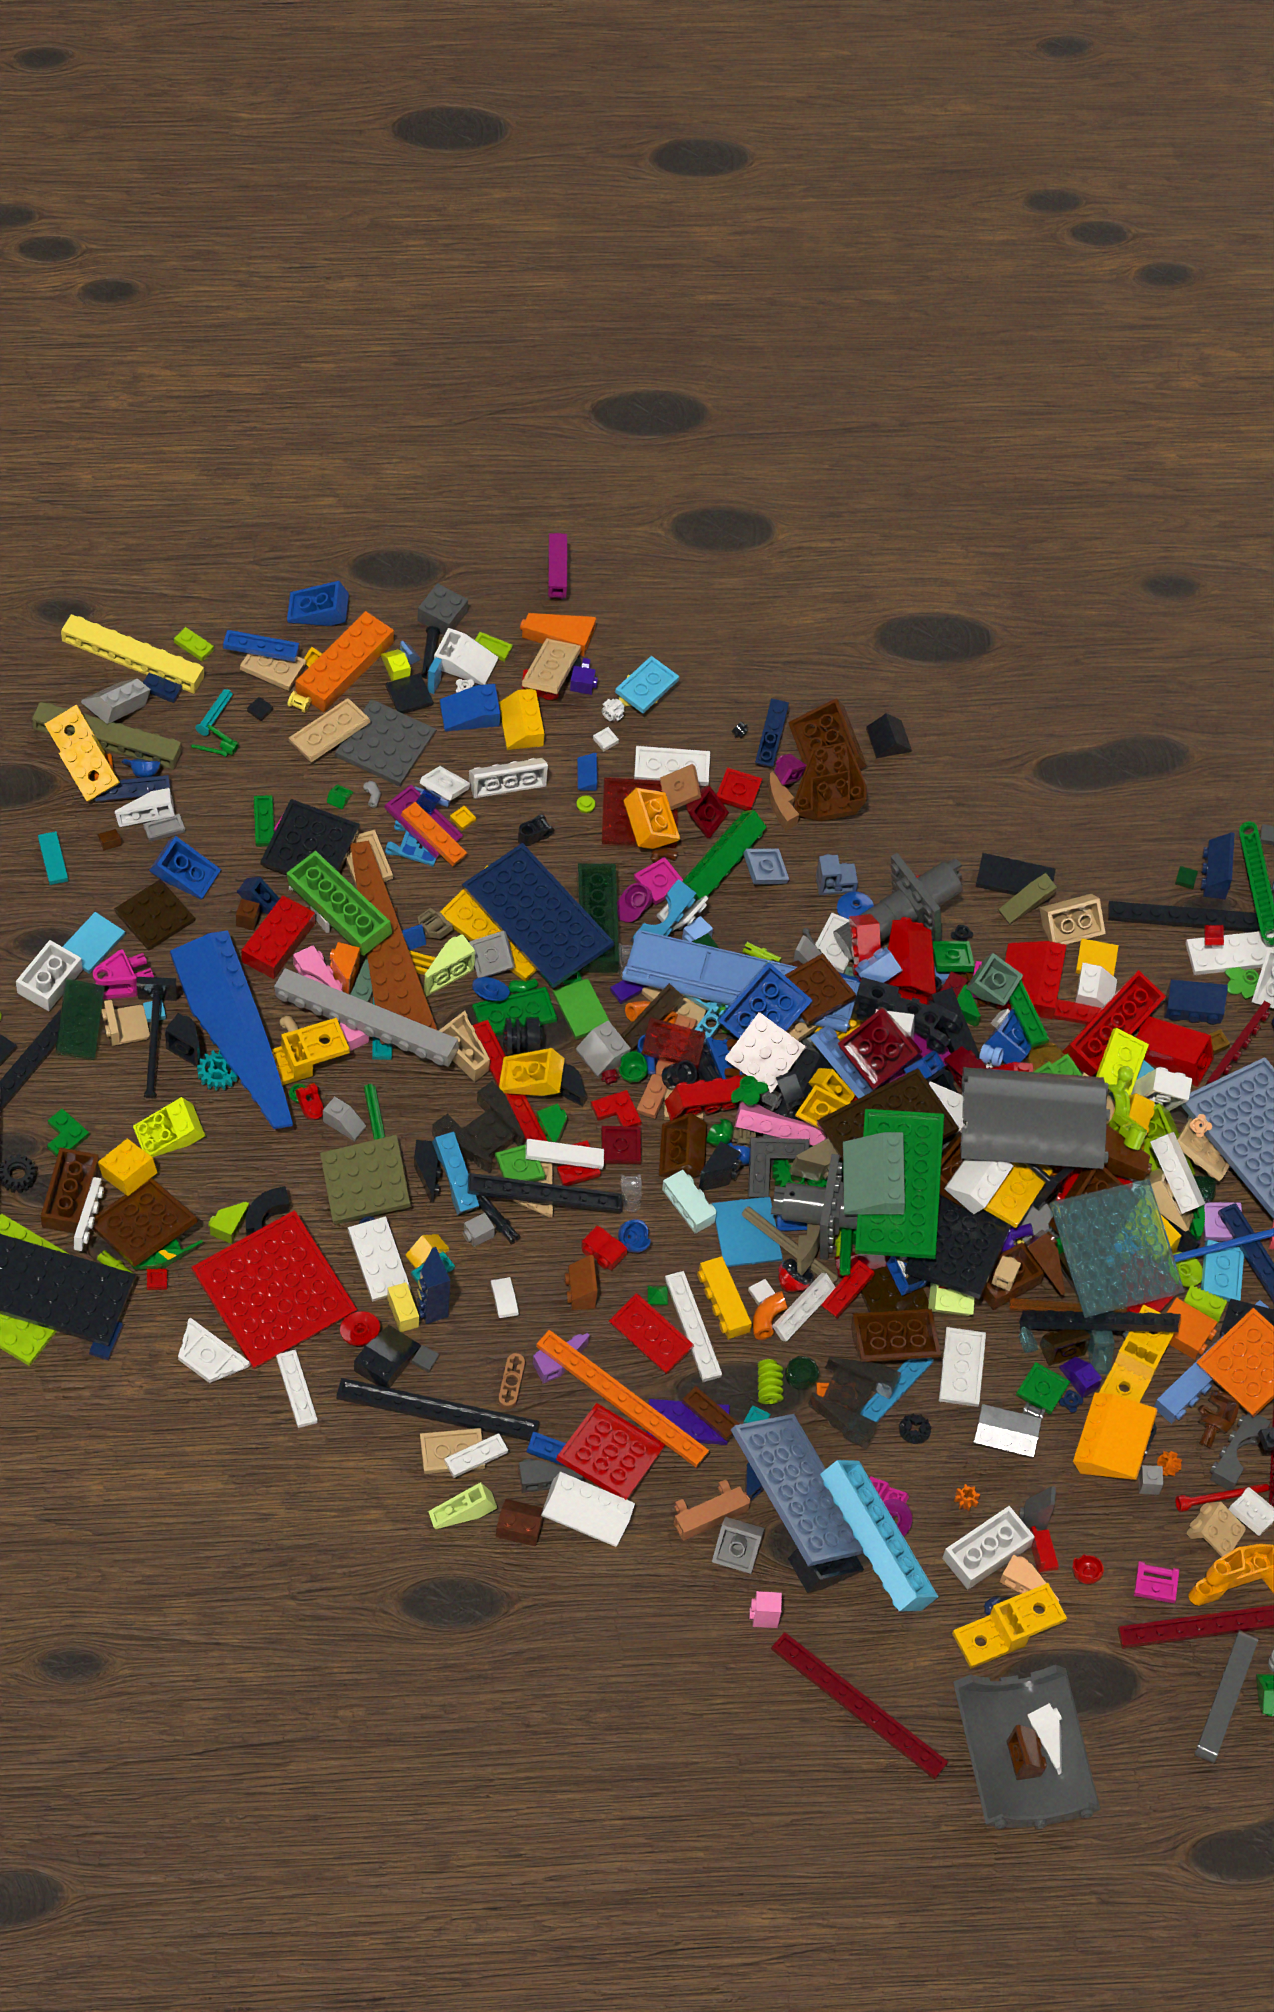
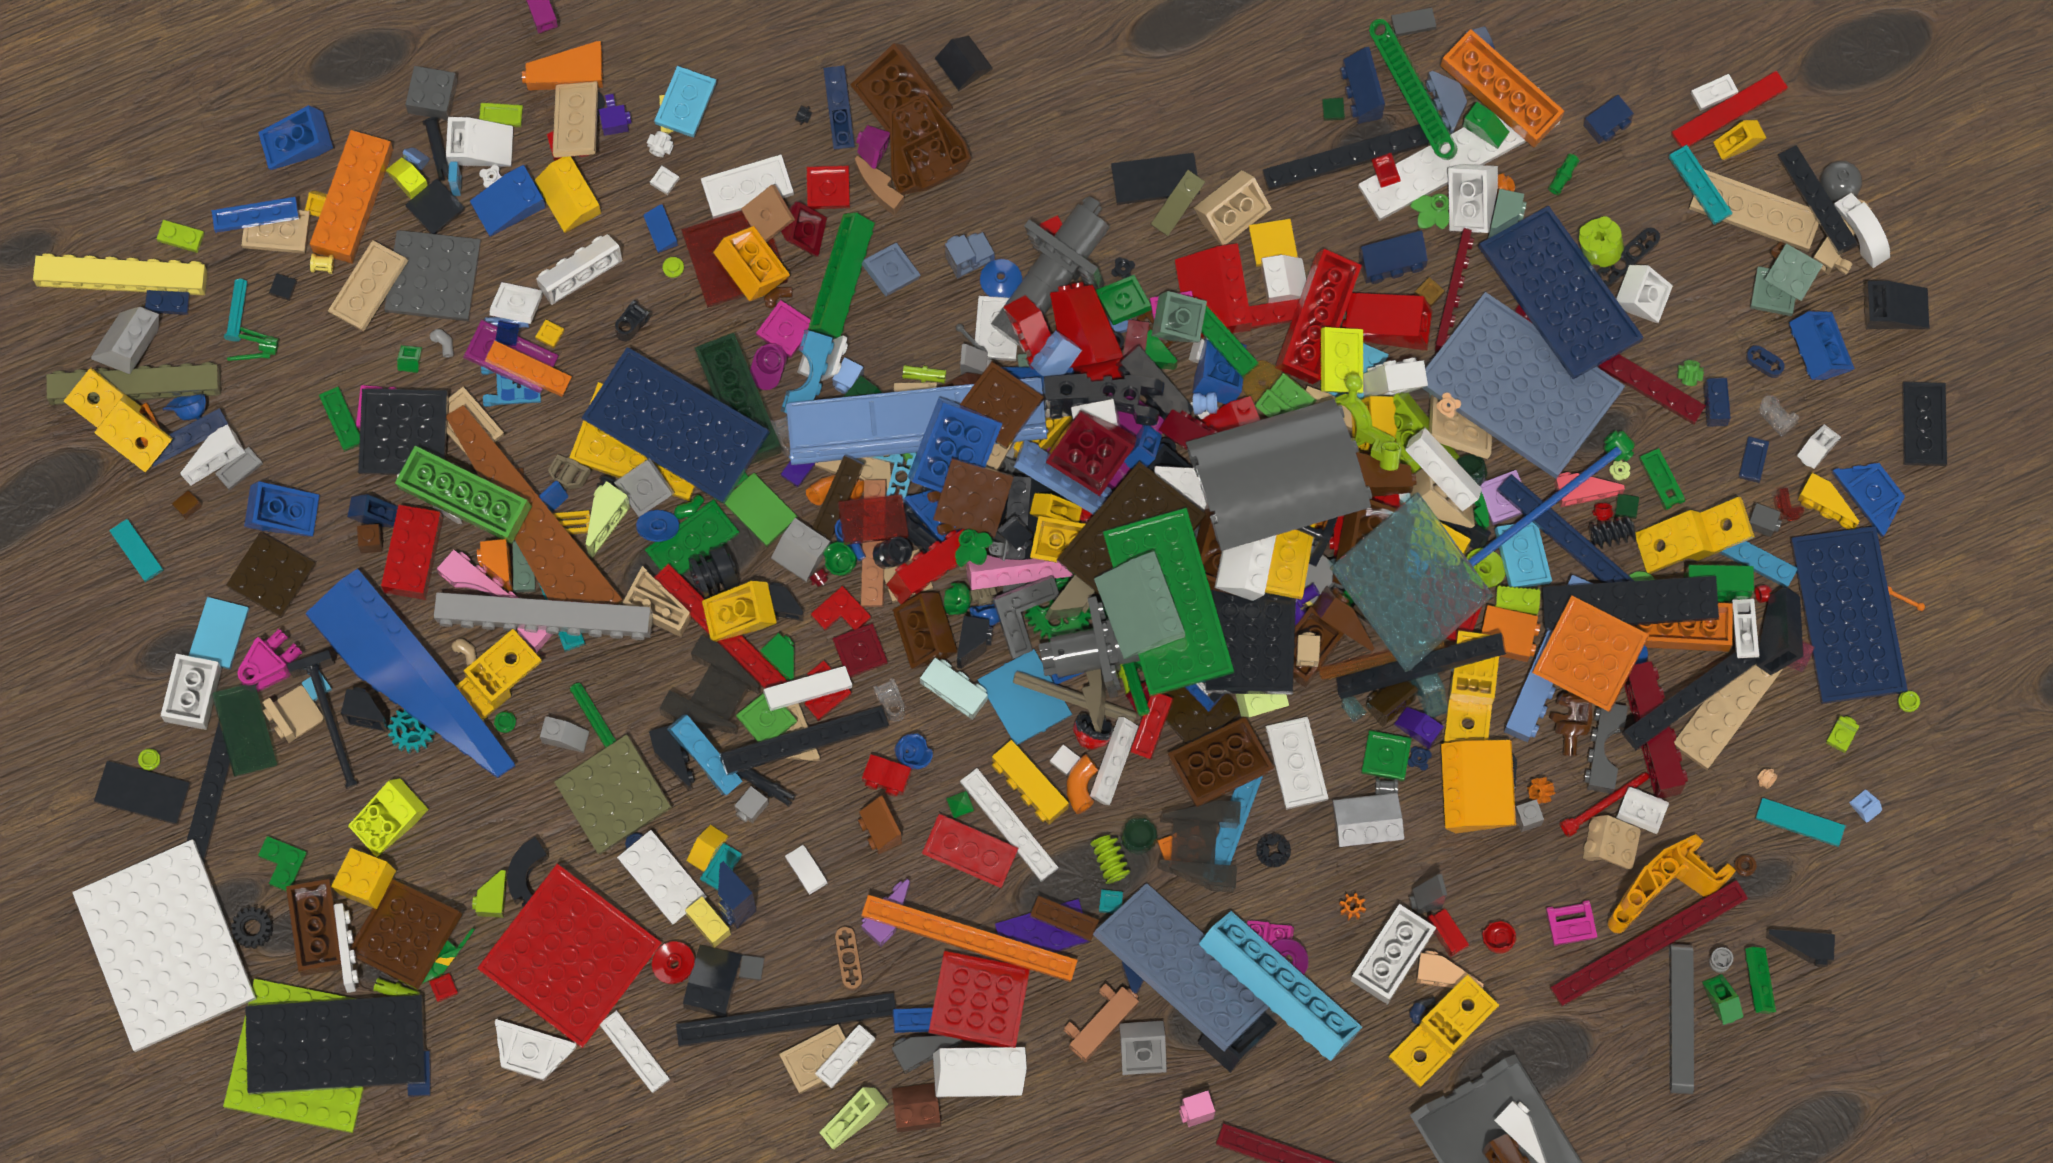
camera: 15 degrees left, 15 degrees up
(311, 1109) = (527, 734): red plate -> none

